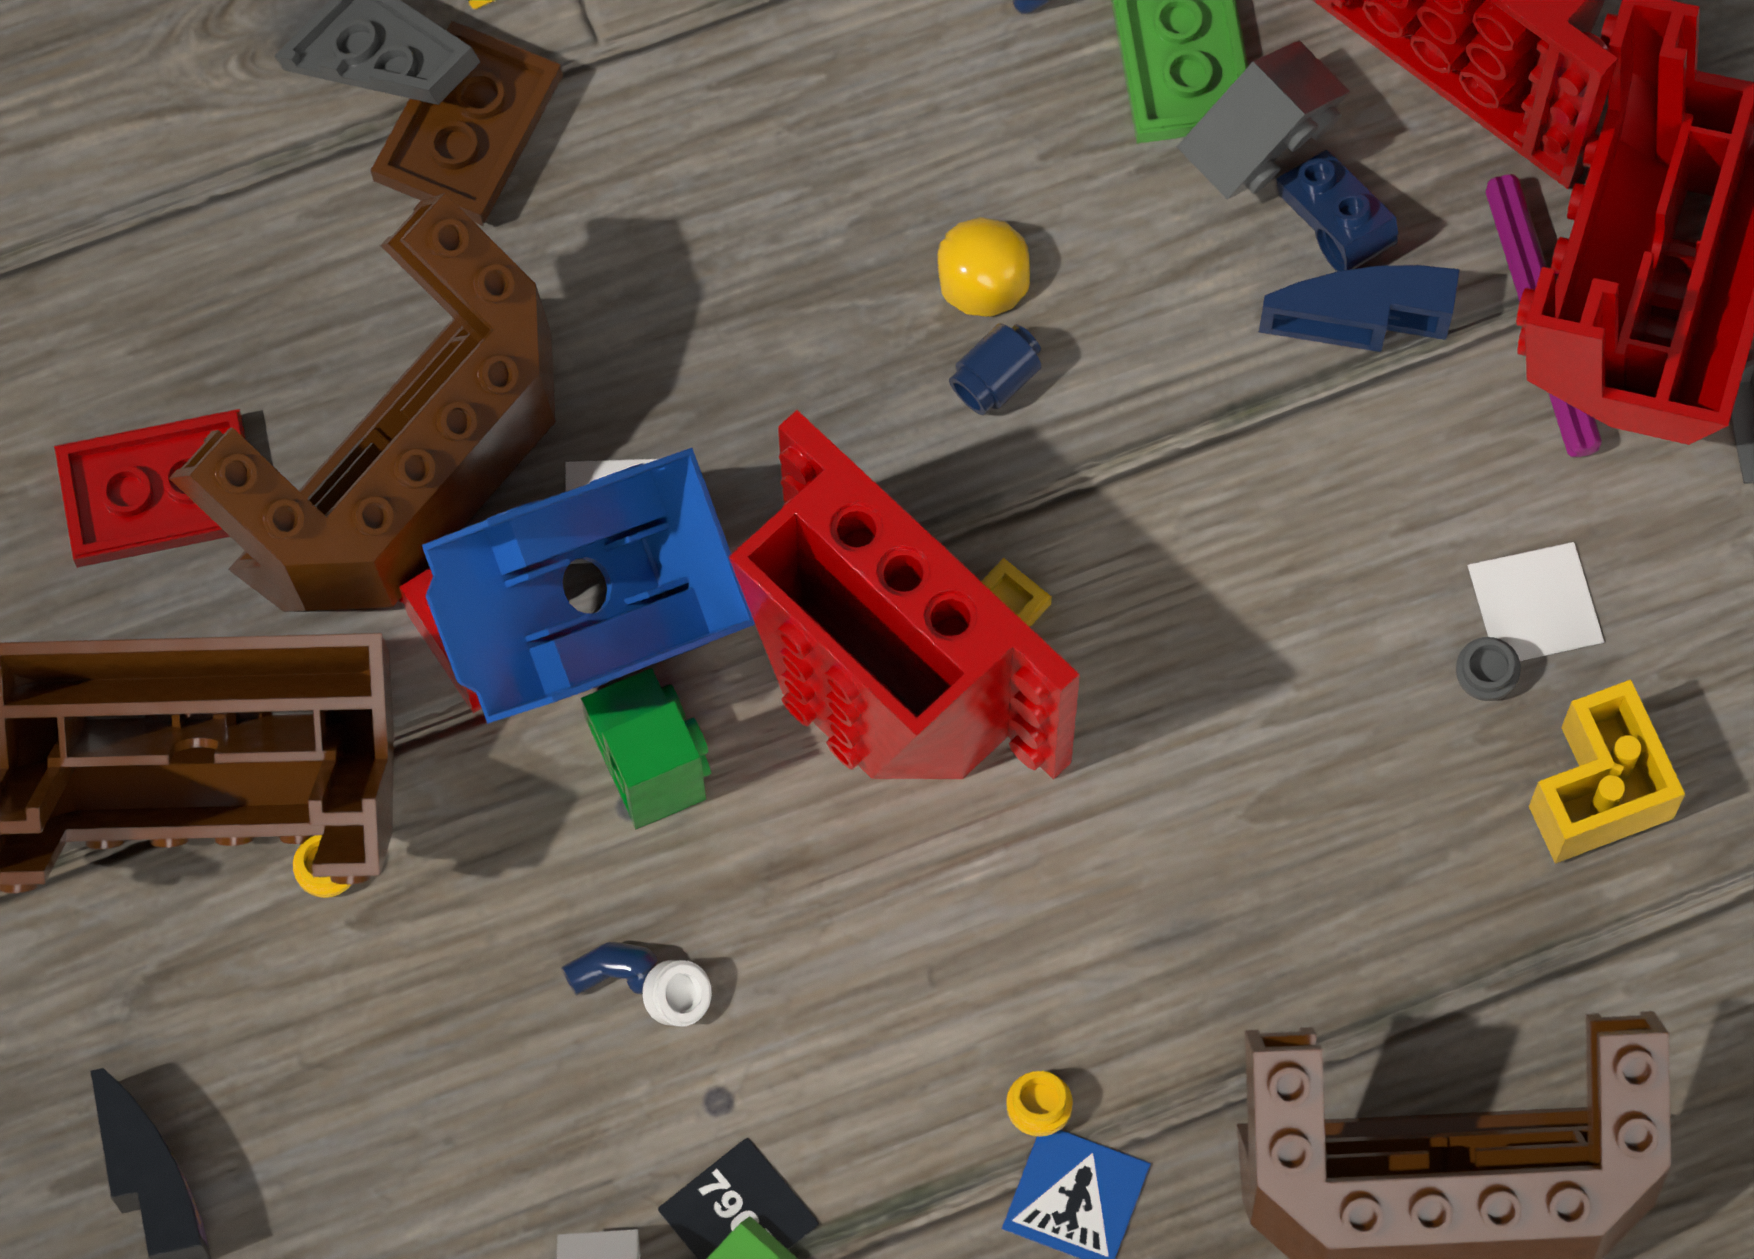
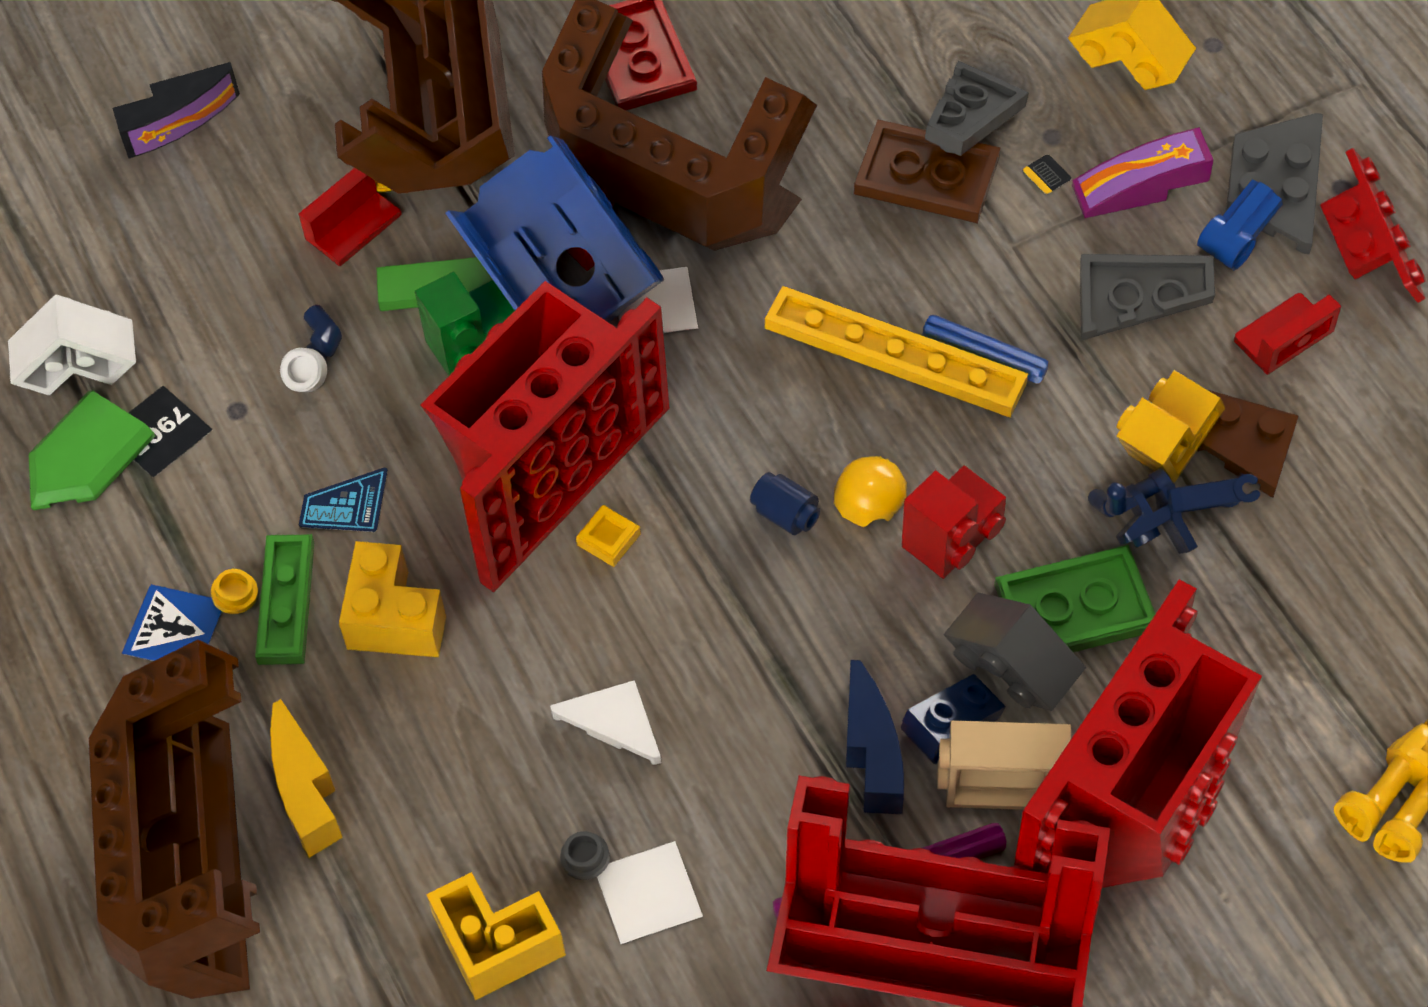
camera: 85 degrees right, 10 degrees down
(408, 921) = (347, 217): none -> red panel
(544, 797) = (398, 283): none -> bright green tile
(766, 206) = (896, 351): none -> yellow plate
(776, 96) = (985, 346): none -> blue axle
(903, 951) = (346, 505): none -> dark blue sticker
(1054, 1037) = (285, 599): none -> bright green tile
(1059, 163) = (950, 519): none -> red brick
(1100, 902) = (383, 612): none -> yellow brick
(1289, 616) = (613, 717): none -> white tile
(1361, 1019) = (302, 782): none -> yellow slope
(1433, 145) = (997, 762): none -> tan window

